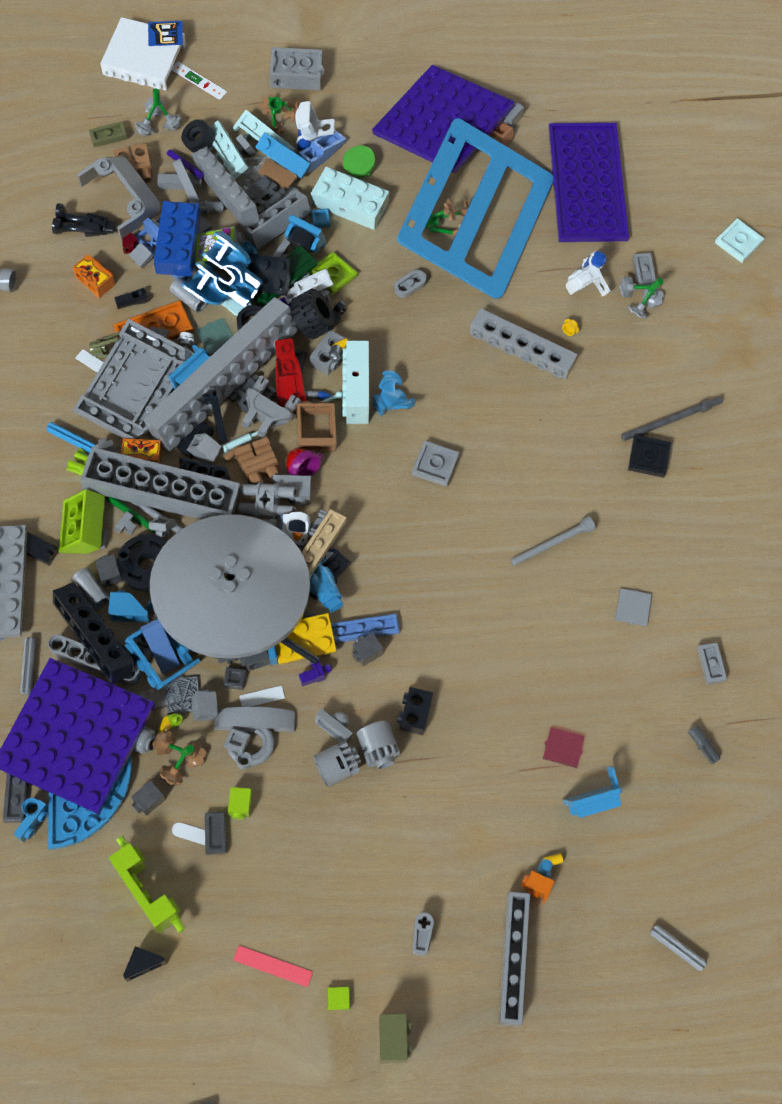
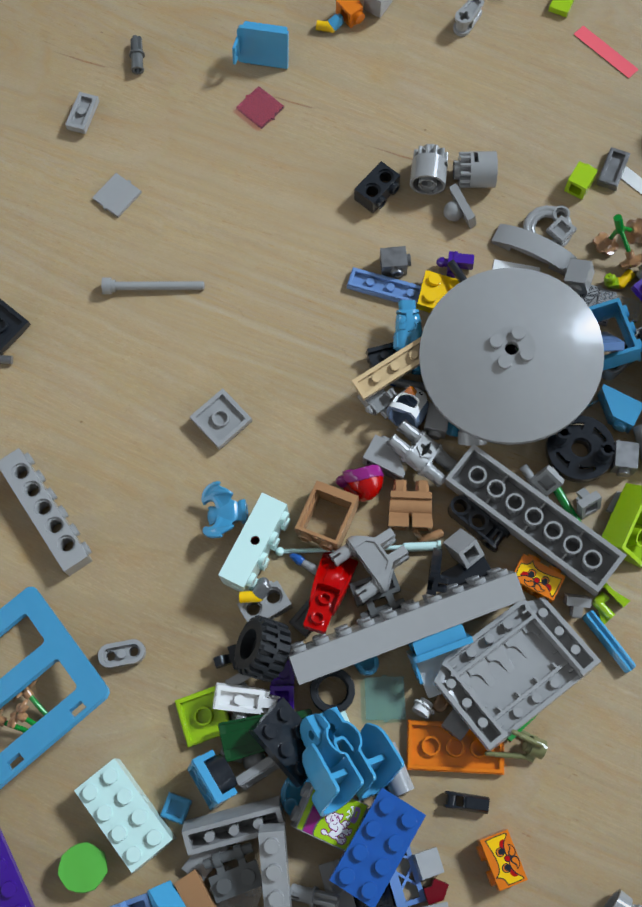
camera: 145 degrees left, 5 degrees up
(89, 360) = (545, 732): white sticker -> none

